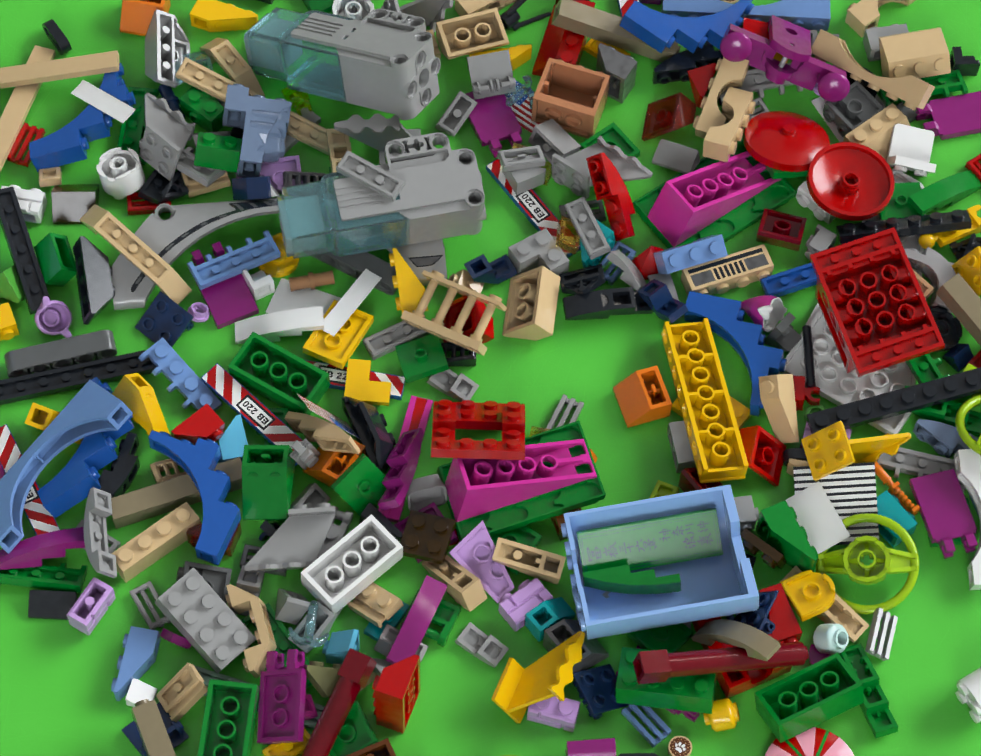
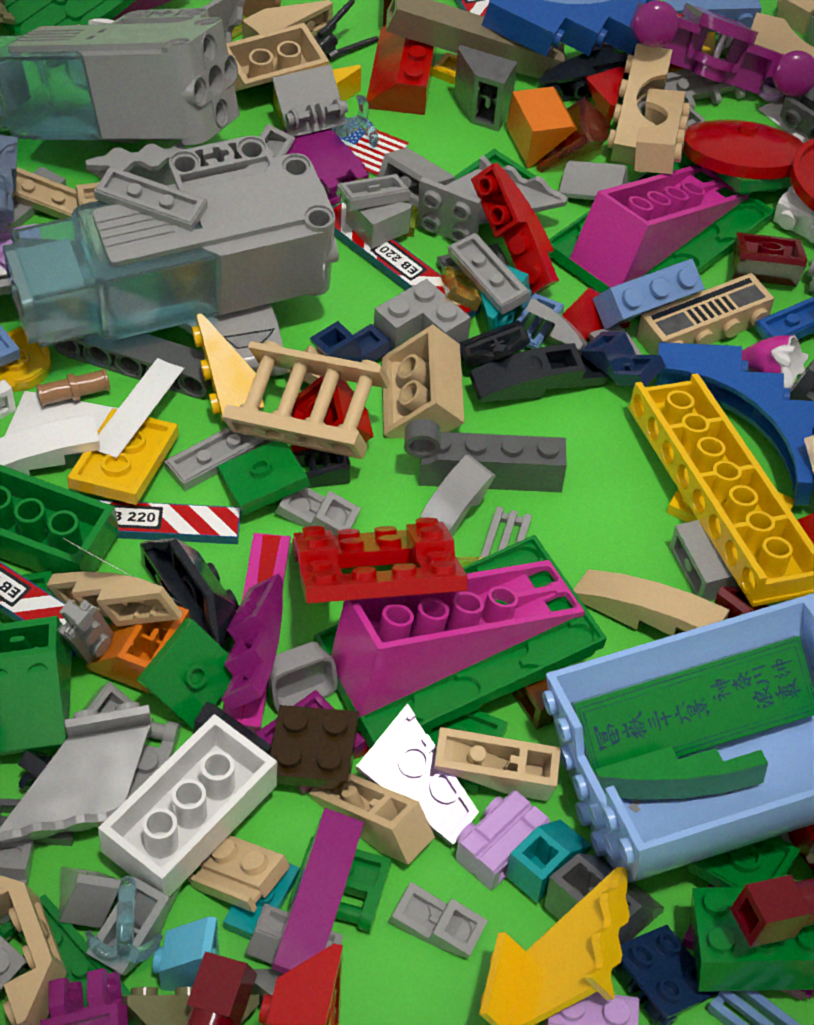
camera: 10 degrees left, 10 degrees down
(298, 99) = (31, 156): clear neon green plate -> none
(359, 386) = (165, 520): yellow tile -> none
(539, 385) = (458, 492): none -> light grey slope
(561, 362) = (516, 460): none -> dark grey hinge
(571, 97) = (429, 116): nougat container -> none
(641, 470) = (646, 601): none -> tan slope
(643, 397) = (625, 495): orange slope -> none
(647, 105) = (538, 122): none -> orange slope

